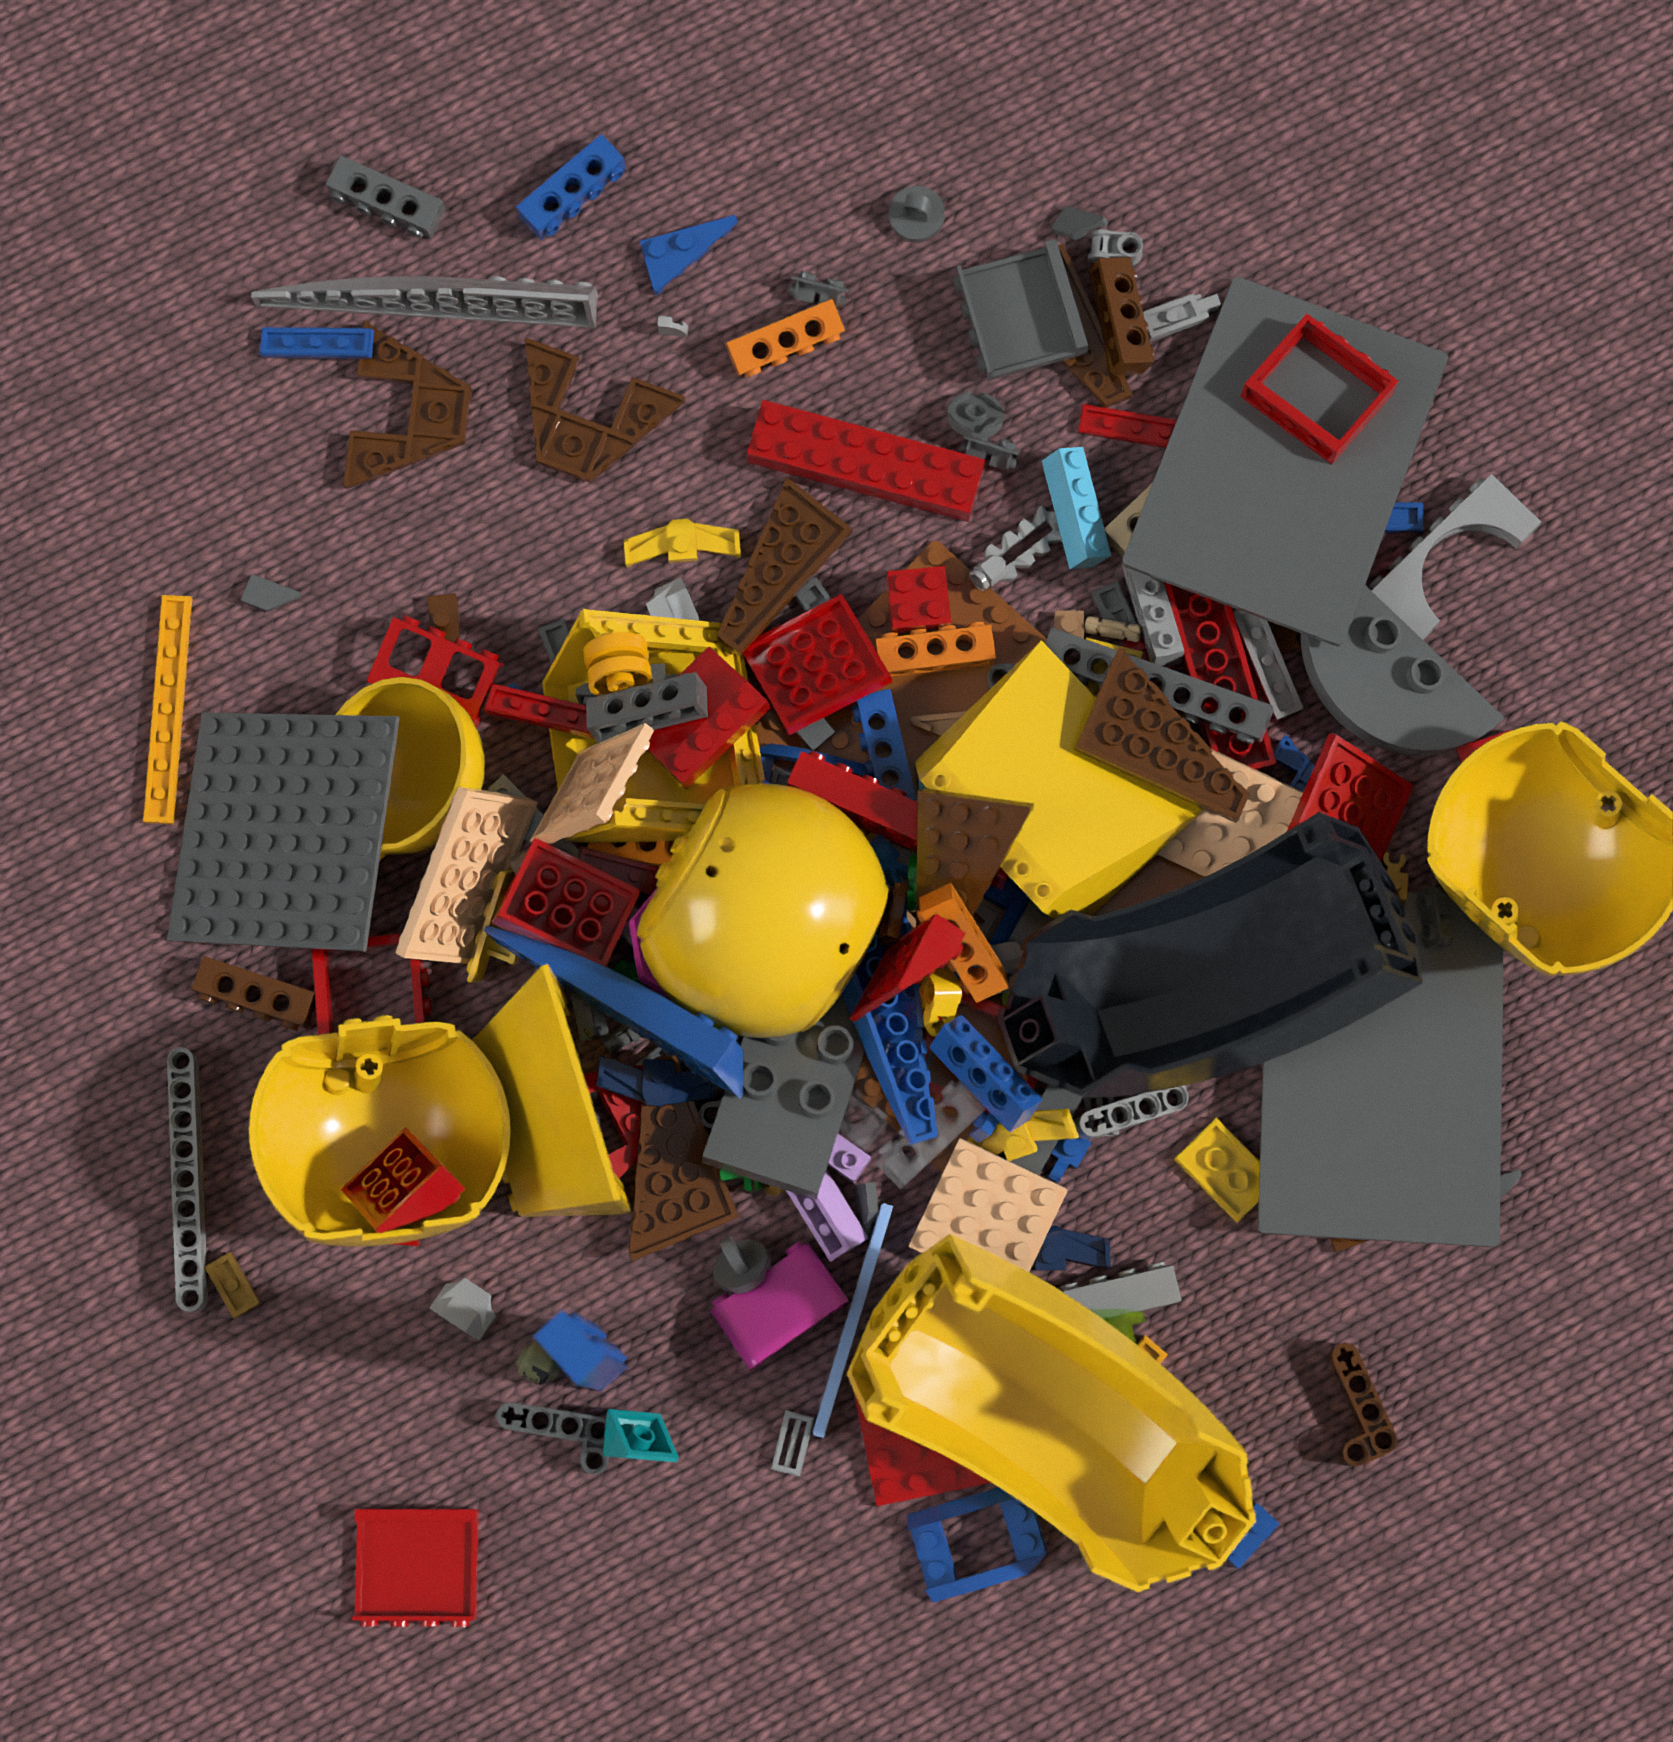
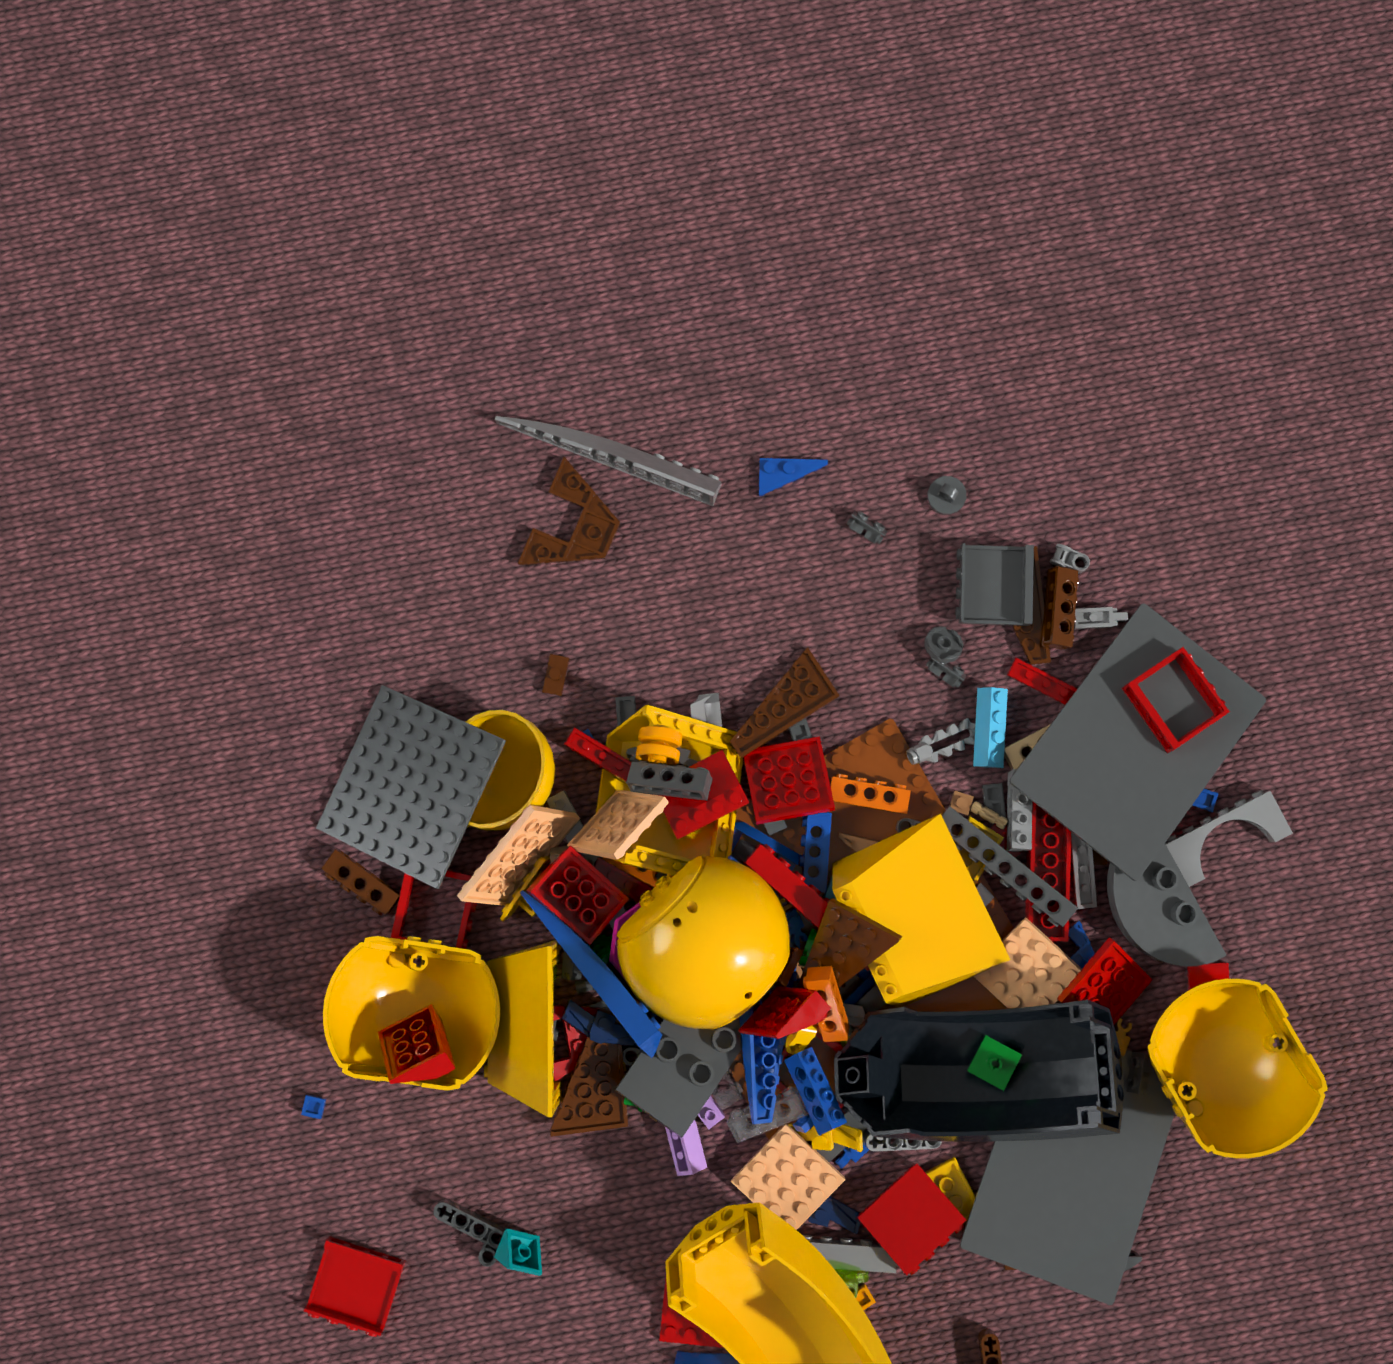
camera: 15 degrees right, 5 degrees up
(167, 709) = (360, 676): light orange tile -> none
(193, 1193) = (276, 998): light grey beam -> none
(232, 1285) = (291, 1068): pearl gold plate -> none
(267, 594) = (447, 620): dark grey tile -> none
(280, 1329) = (313, 1106): none -> blue plate
(316, 343) = (528, 462): blue tile -> none
(349, 174) = (583, 354): dark grey brick -> none
(436, 663) = (540, 705): red window -> none
(465, 1307) = (434, 1129): light grey slope -> none
(537, 1364) = (471, 1181): olive head -> none
(577, 444) = (676, 581): reddish brown wing -> none
(582, 1350) = (497, 1207): blue brick -> none
(596, 154) = (750, 391): blue brick -> none
(667, 327) = (760, 521): light grey tile -> none
(681, 541) = (726, 667): yellow plate -> none
(741, 1265) = (620, 1160): dark grey tile -> none
(781, 1308) = (636, 1195): dark pink windscreen -> none
(786, 1468) = (627, 1267): light grey tile -> none
(823, 314) = (825, 548): orange brick -> none
(852, 1320) = (680, 1216): light blue tile -> none
(865, 460) = (862, 653): red brick -> none
(866, 1205) = (712, 1145): dark grey tile -> none
(918, 599) = (868, 758): red brick -> none
(1075, 223) = (1050, 535): dark grey tile -> none
(1147, 739) = (988, 903): reddish brown wing -> none
(1180, 1217) = (911, 1219): none -> red panel
(1226, 962) = (994, 1062): none -> green tile

